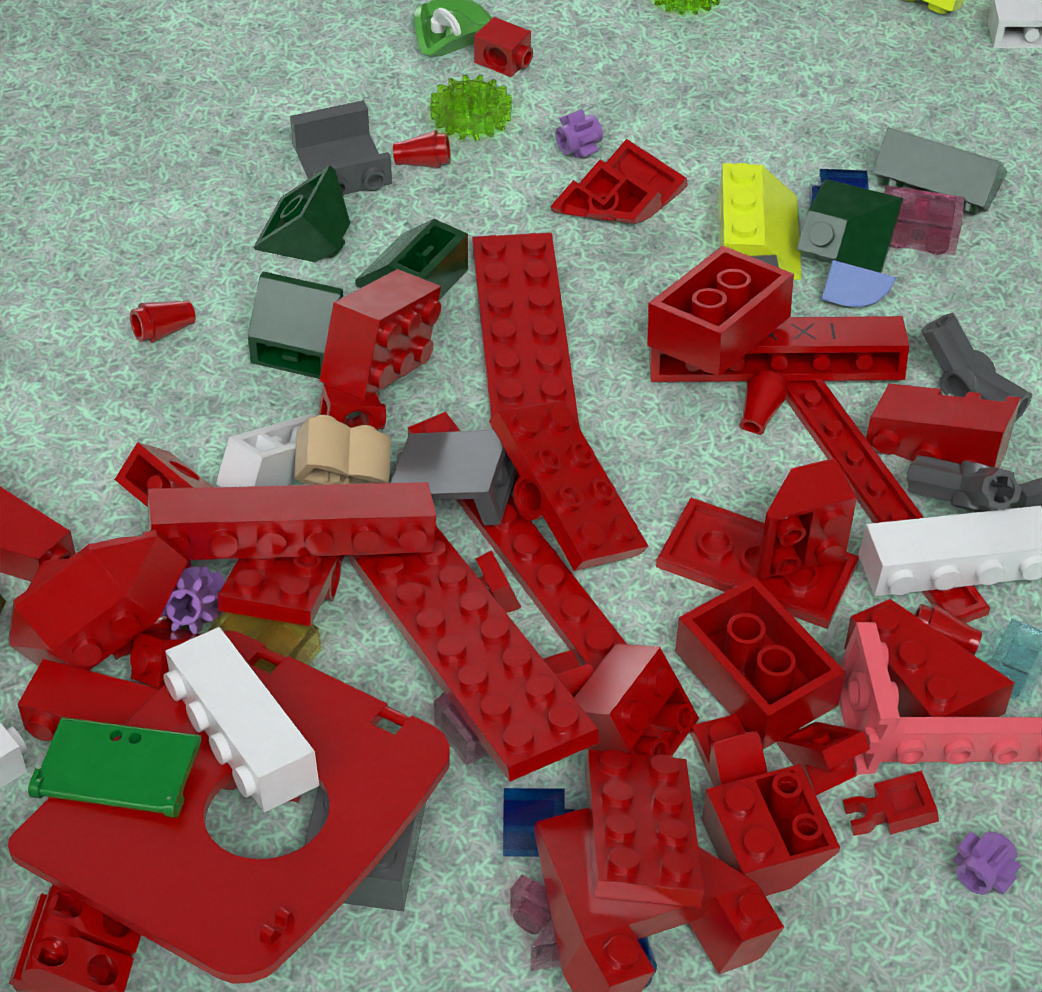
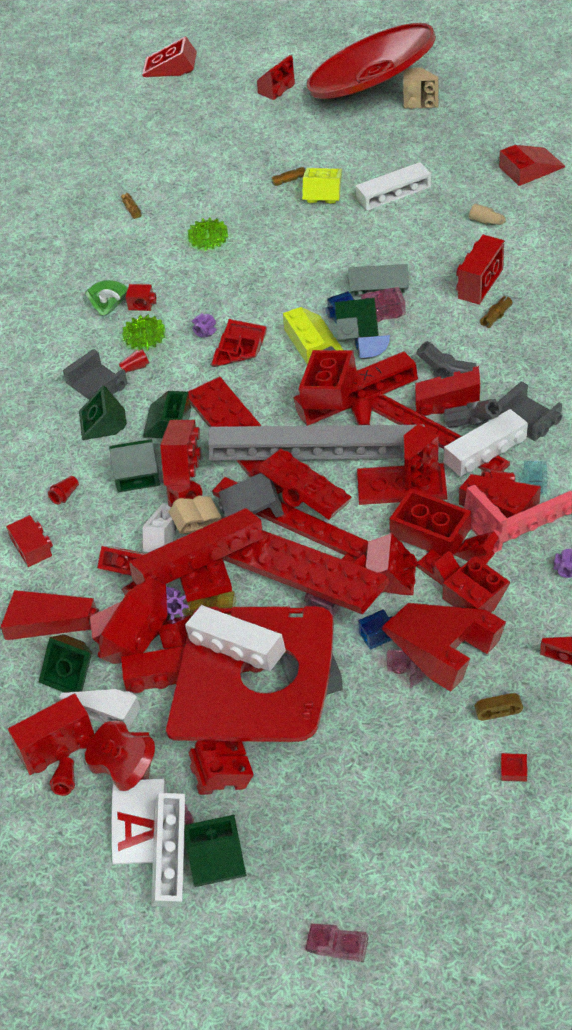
camera: 20 degrees left, 0 degrees up
(45, 383) = (29, 540): none -> red brick
(123, 773) = (195, 683): green door -> none
(497, 582) = (297, 537): red plate -> none
(621, 408) = (308, 442): none -> light grey brick
(642, 829) = (427, 608): red plate -> none
(898, 802) = (519, 556): red plate -> none

